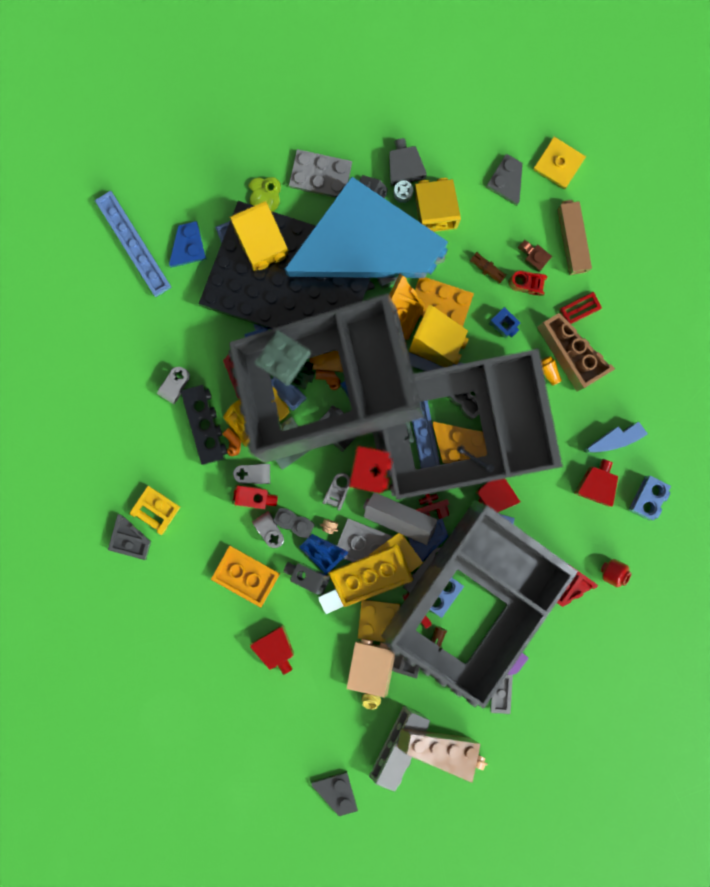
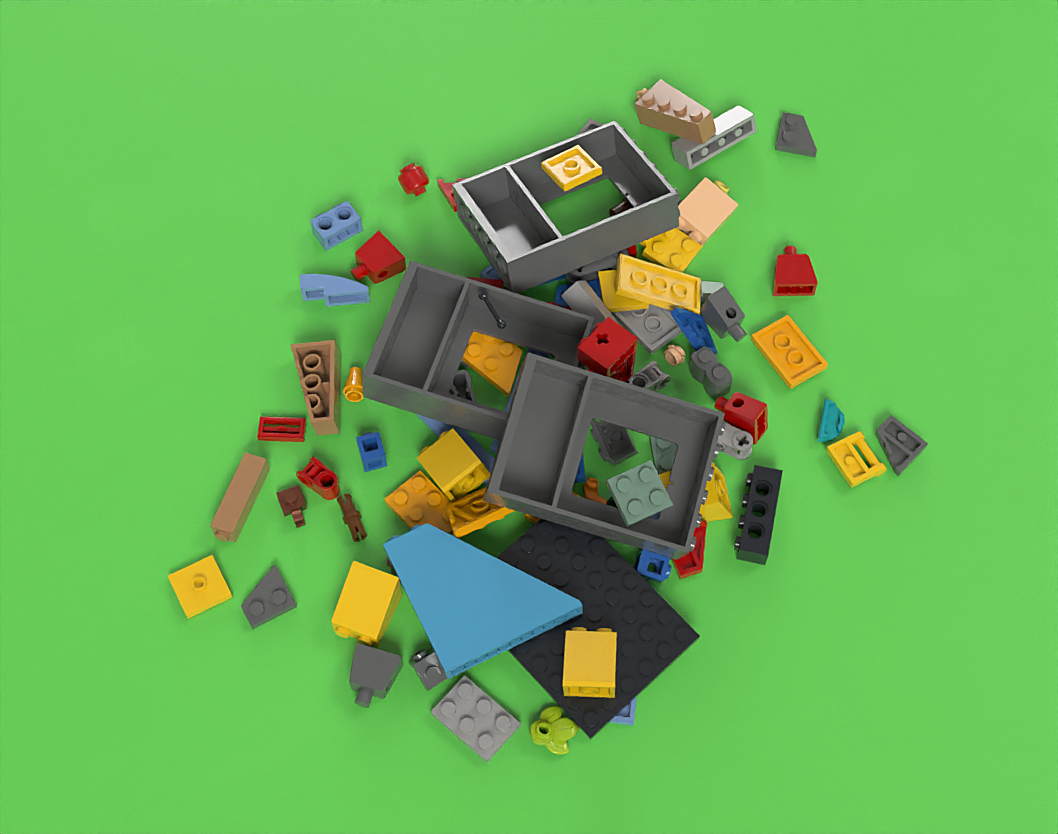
camera: 150 degrees left, 25 degrees down
(133, 244) = (743, 755): medium blue plate -> none
(171, 387) = (771, 573): light grey piece -> none
(187, 245) = (677, 720): blue wing -> none
(187, 532) = (831, 422): none -> teal plate
(234, 442) = (733, 483): orange arm -> none
(266, 528) = (743, 377): light grey piece -> none
(403, 187) = (392, 640): light aqua wheel -> none
(489, 630) = (571, 168): none -> yellow plate

